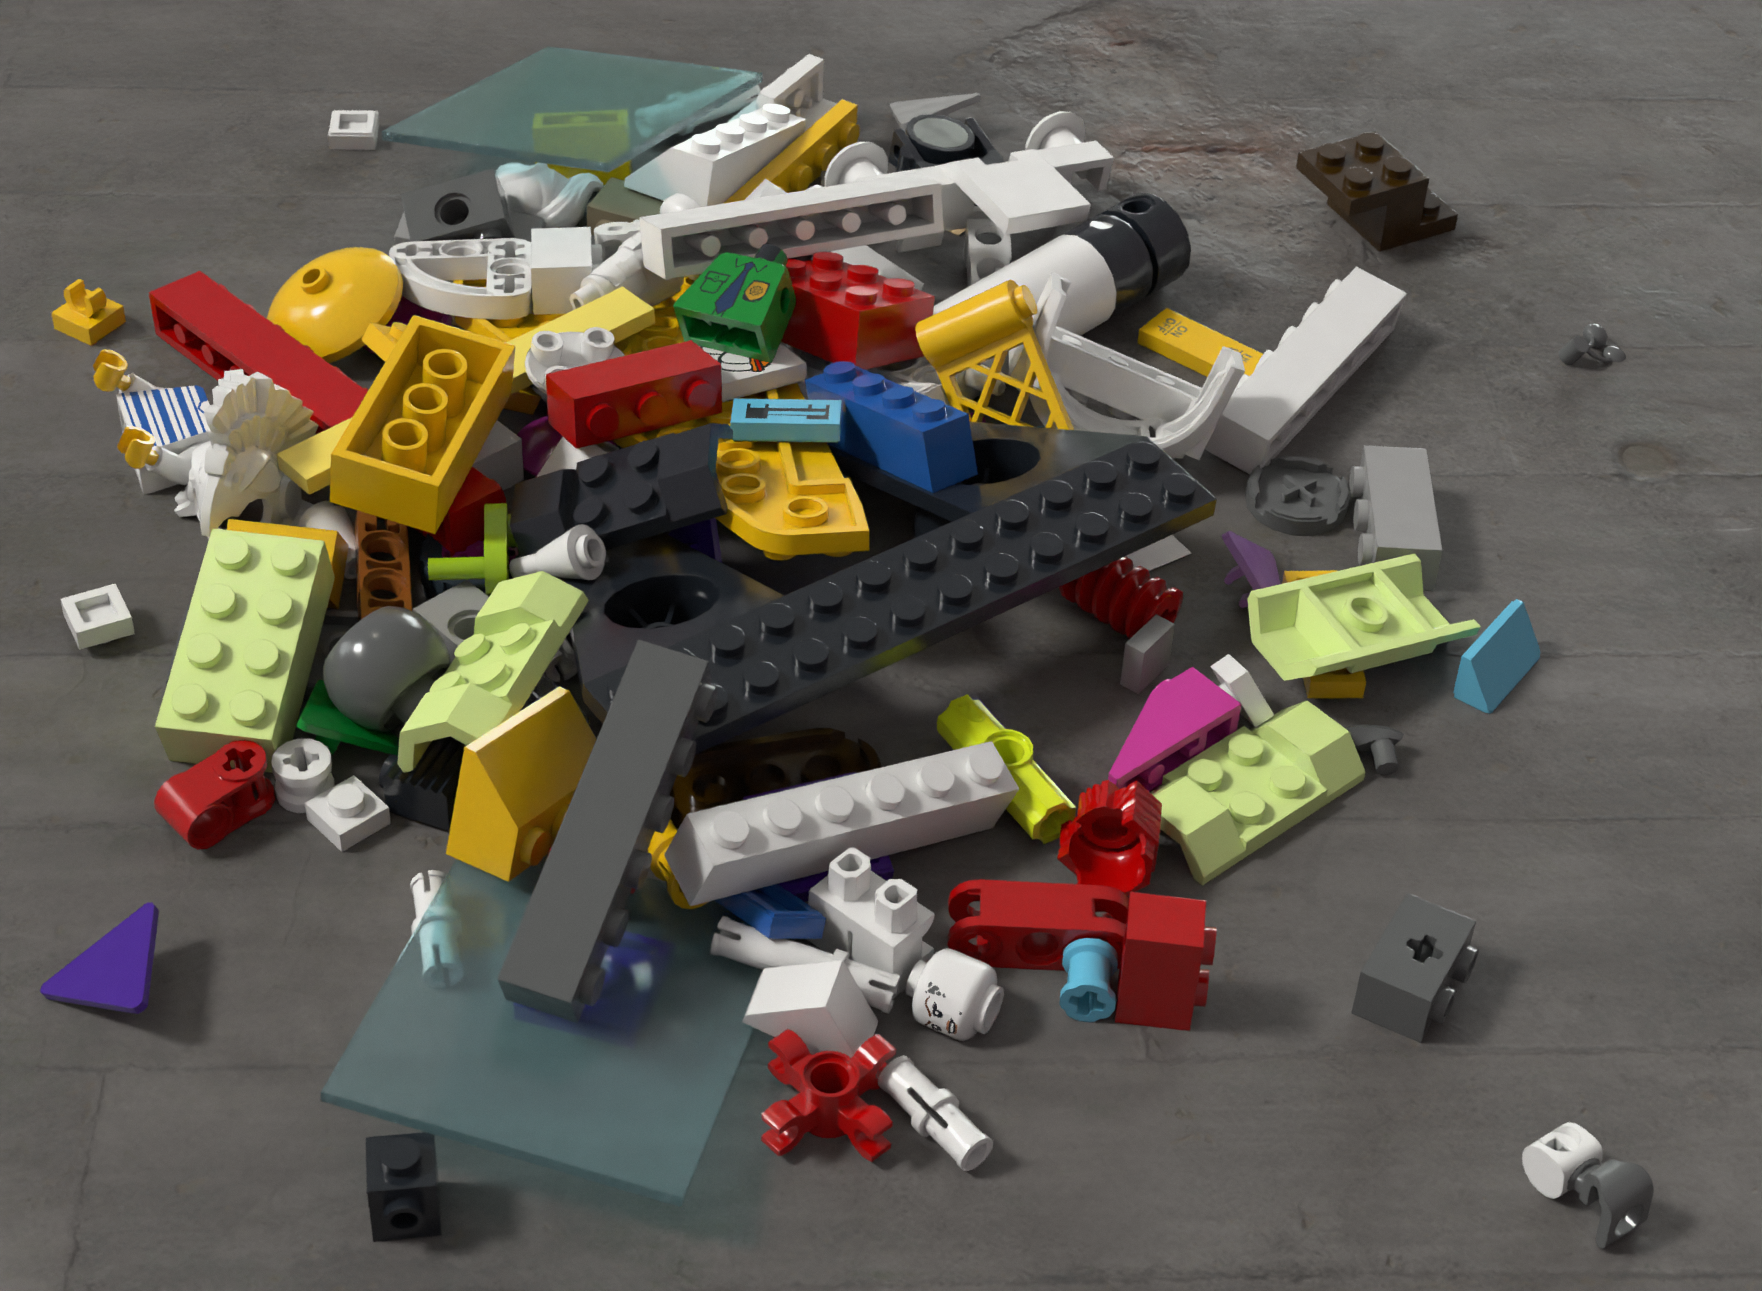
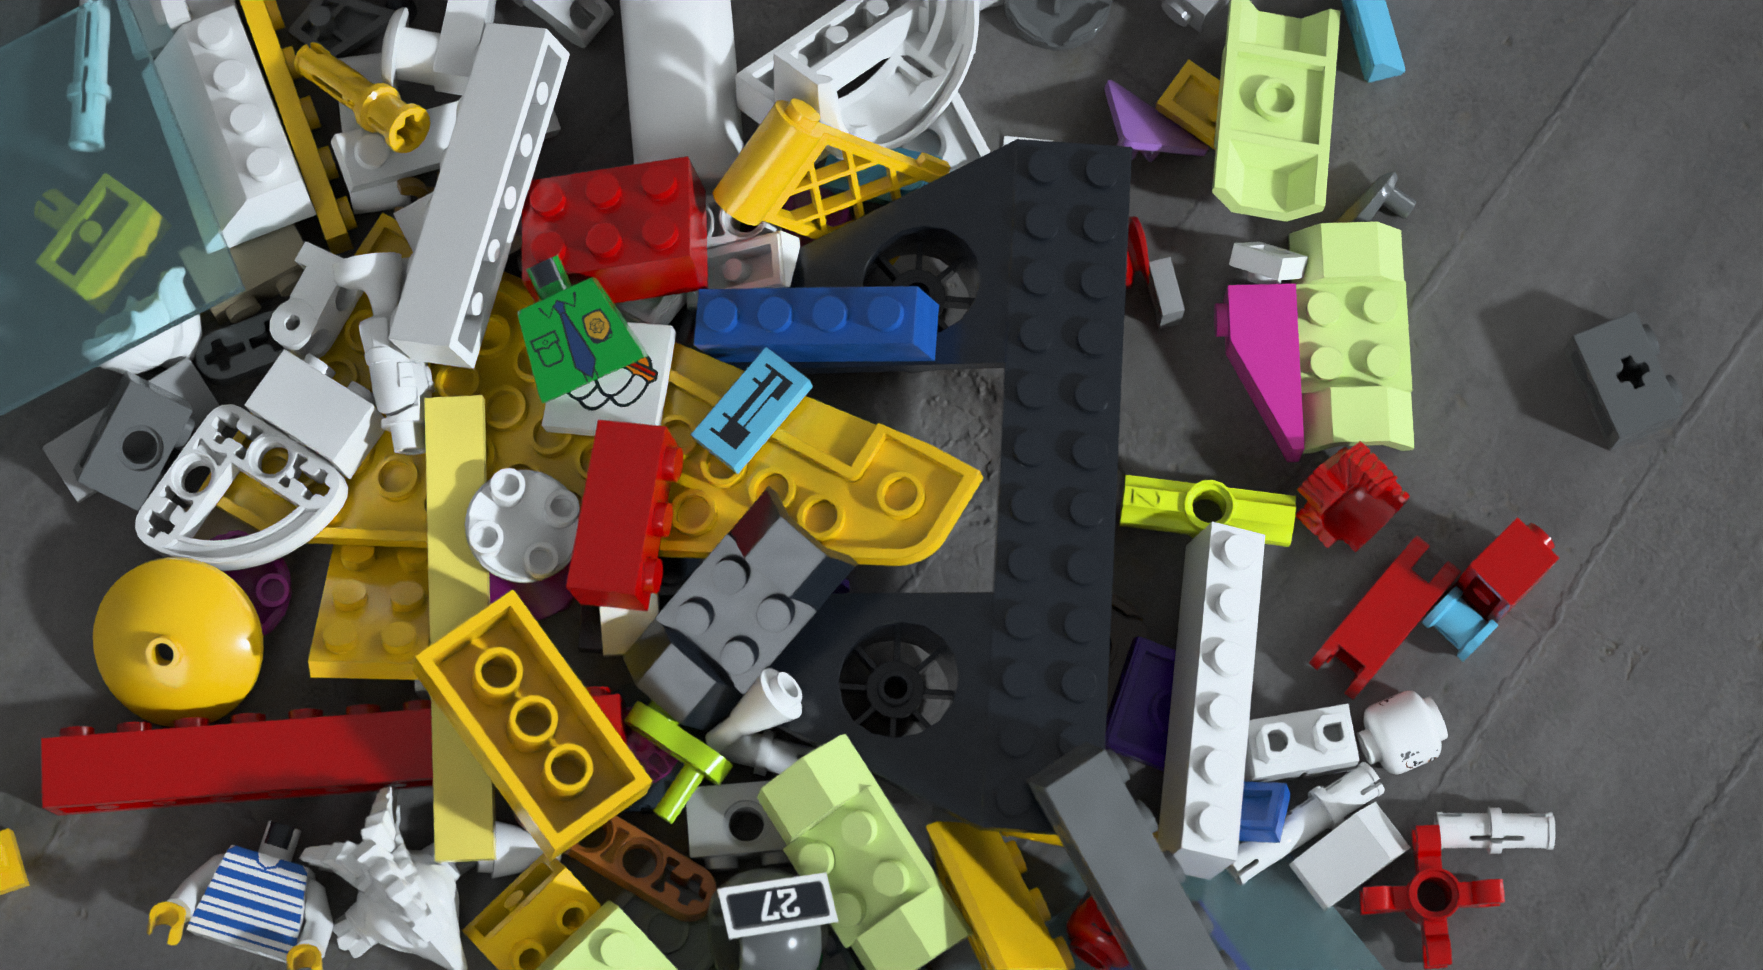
camera: 50 degrees left, 35 degrees up
(422, 639) = (753, 907): none -> sticker
(792, 178) = (374, 104): none -> yellow pin

